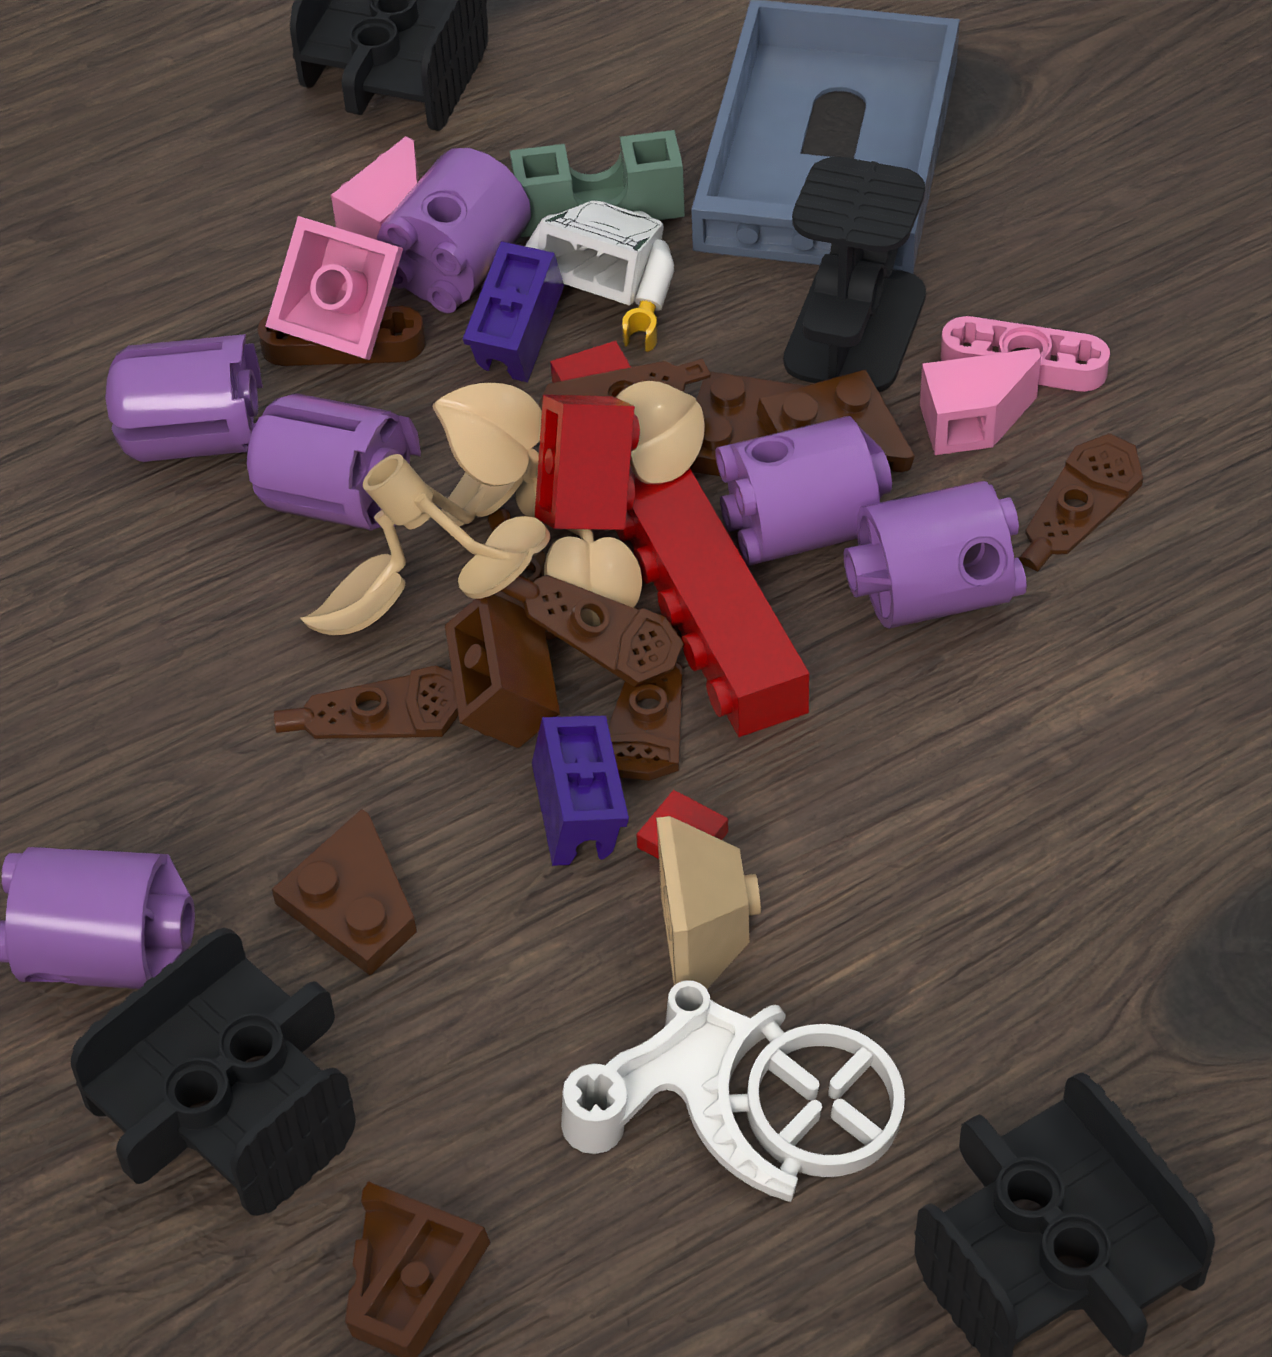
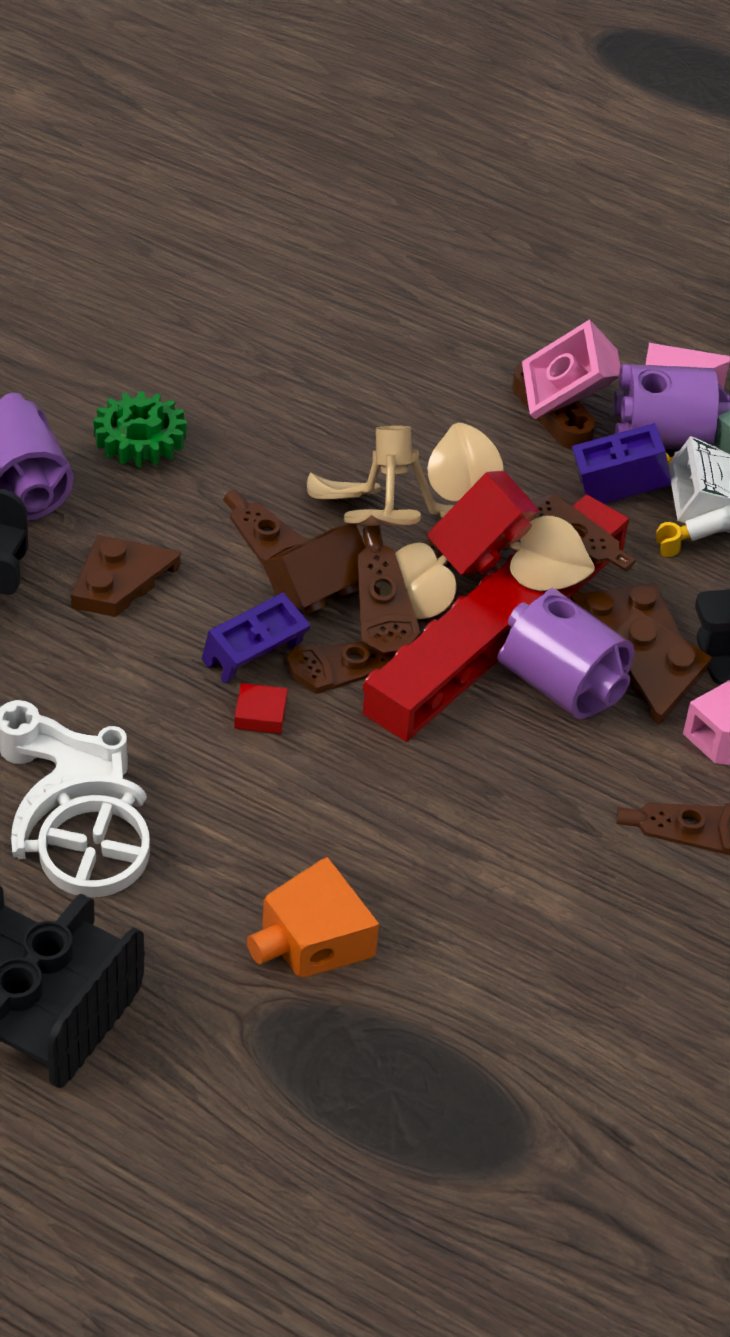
camera: 55 degrees right, 5 degrees down
(71, 772) = (140, 428): none -> green gear
(184, 398) = (431, 349): medium lavender cylinder -> none
(316, 452) = (410, 407): medium lavender cylinder -> none
(703, 901) = (186, 720): tan slope -> none
(936, 554) = (561, 742): medium lavender cylinder -> none
(1072, 910) = (315, 923): none -> orange torso

